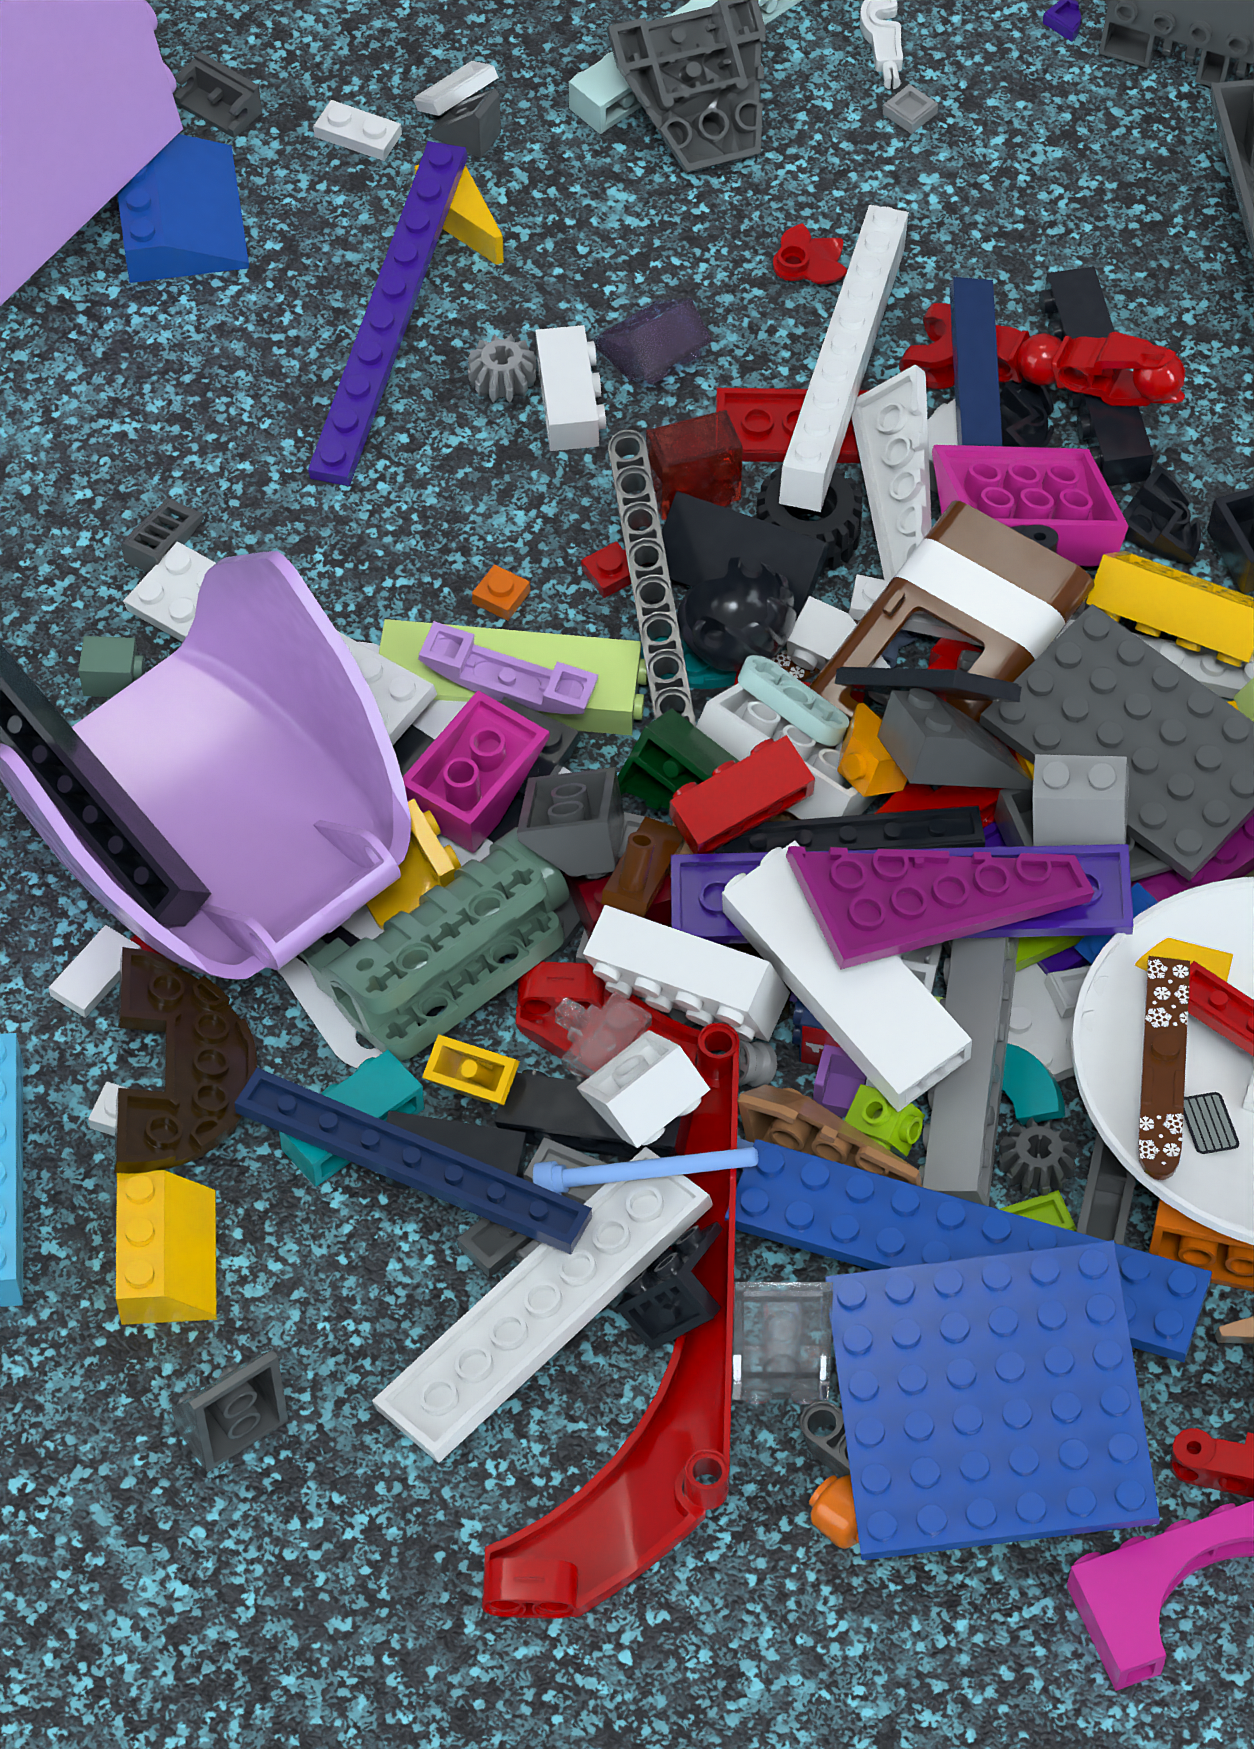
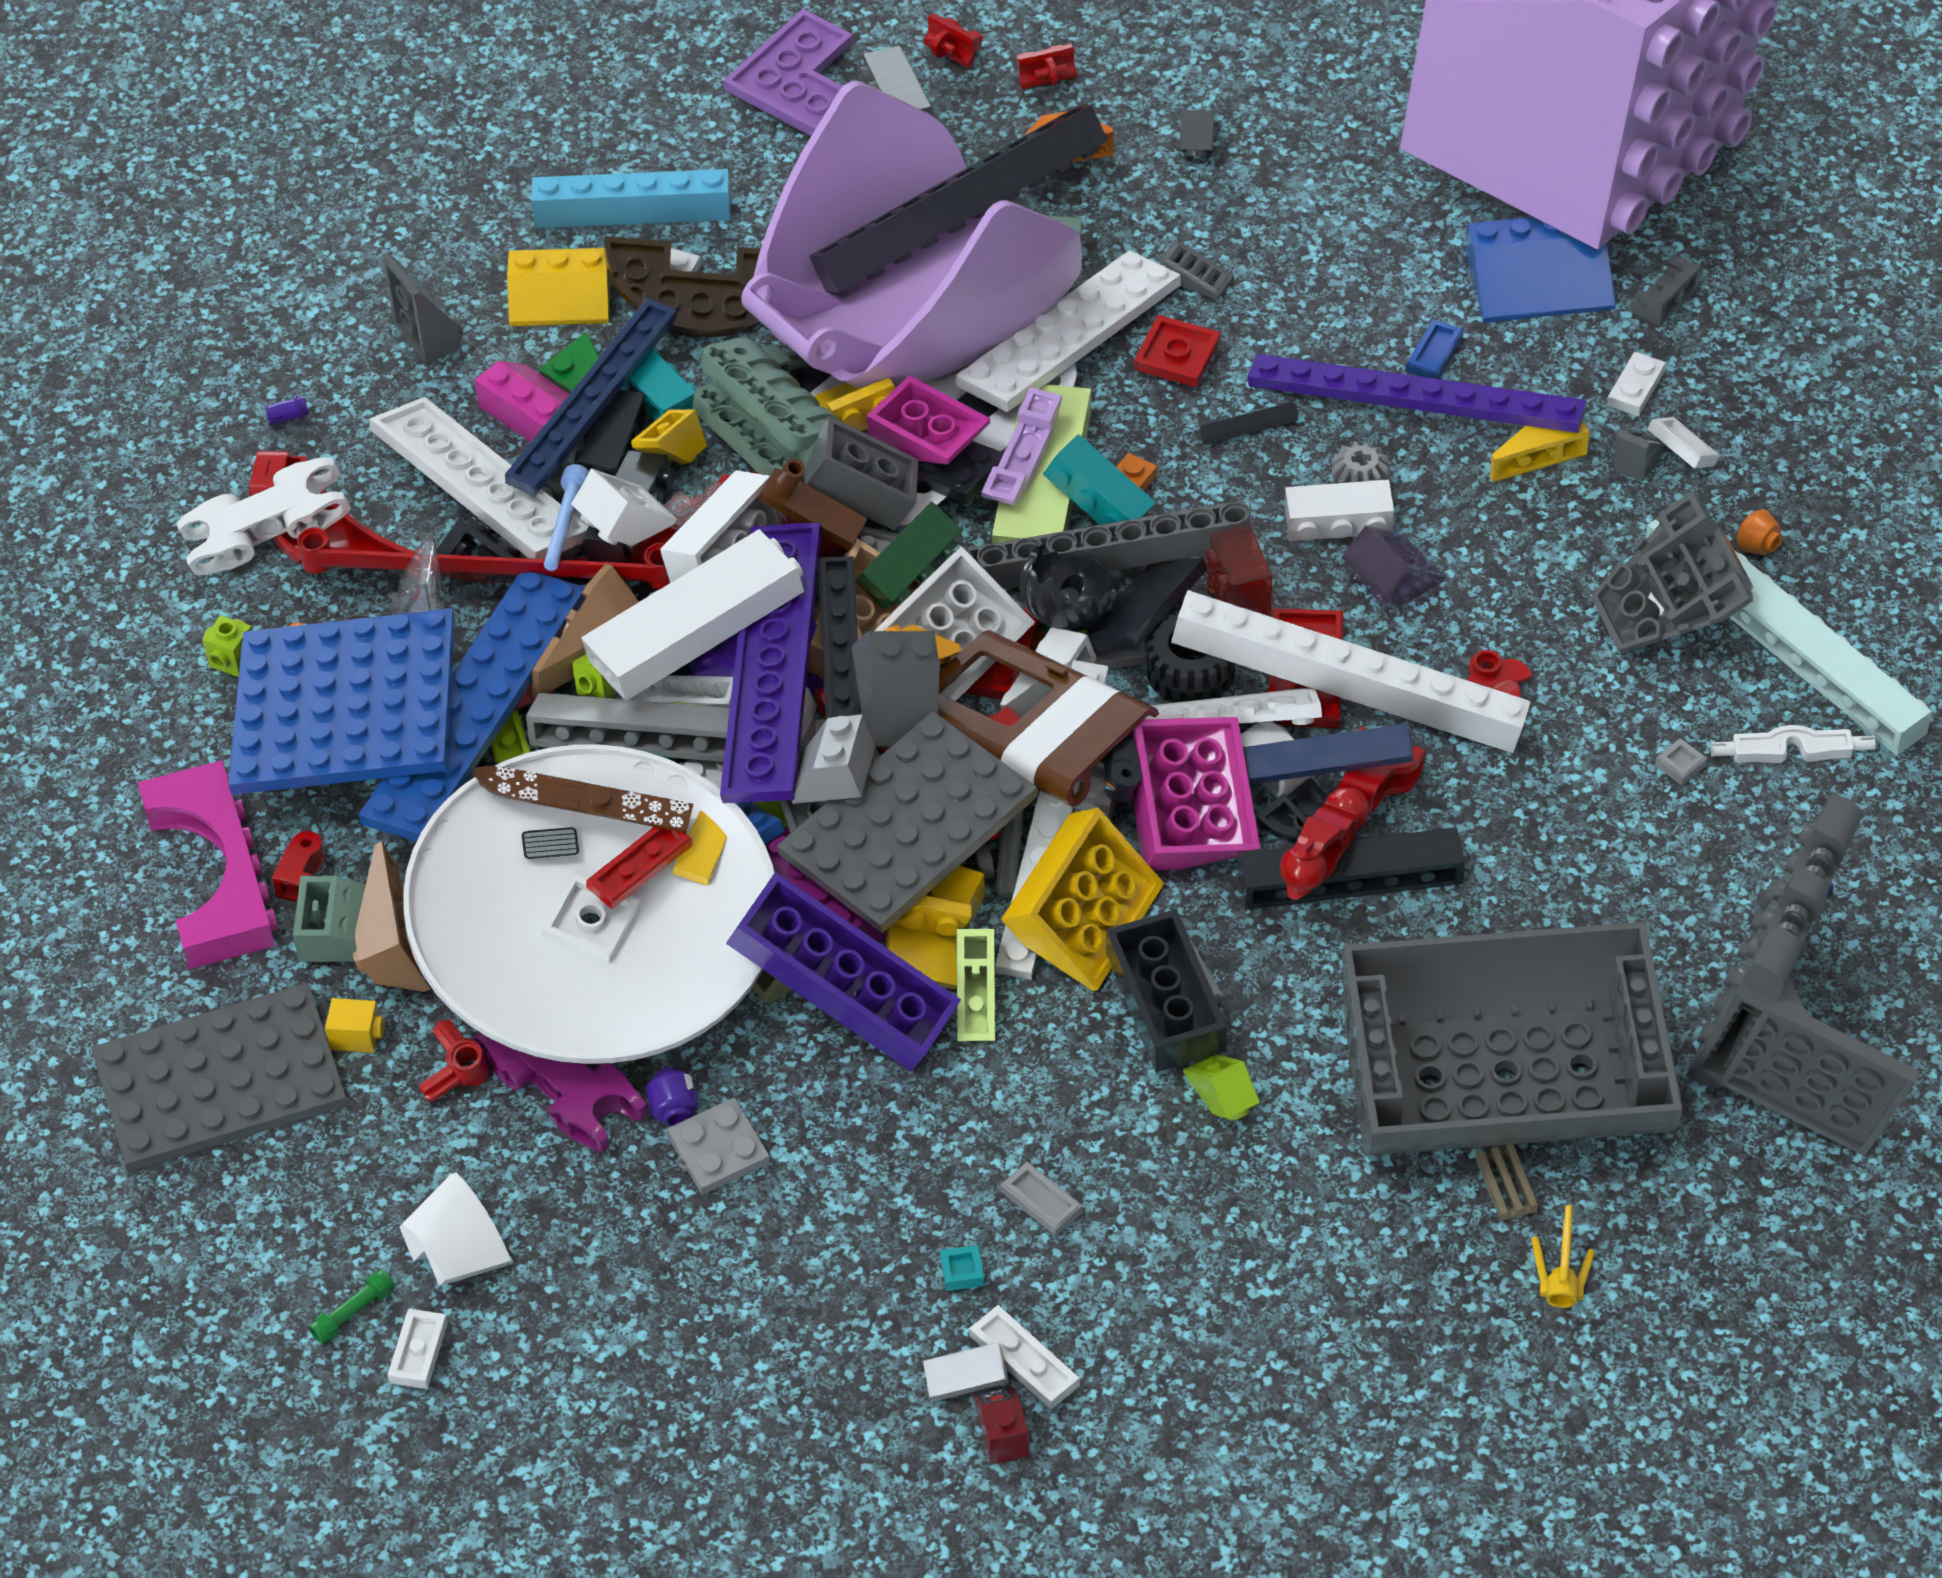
camera: 95 degrees right, 5 degrees down
(299, 308) = (1434, 350): none -> blue tile
(310, 541) = (1177, 351): none -> red plate
(316, 1217) = (570, 364): none -> green wing
(385, 1261) = (518, 397): none -> dark pink slope
(390, 1586) = (287, 410): none -> dark purple pin
(419, 480) = (1248, 423): none -> black axle
(558, 601) = (1096, 484): none -> teal brick
(590, 24) = (1759, 533): none -> orange cone
(634, 1610) = (238, 525): none -> white piece
(741, 795) = (860, 555): red brick -> none
(793, 700) = (981, 601): light aqua beam -> none
(850, 1595) = (224, 644): none -> lime brick
(925, 897) = (735, 632): magenta wing -> none
(941, 682) = (955, 670): black tile -> none
(1161, 519) = (1201, 904): black brick -> none

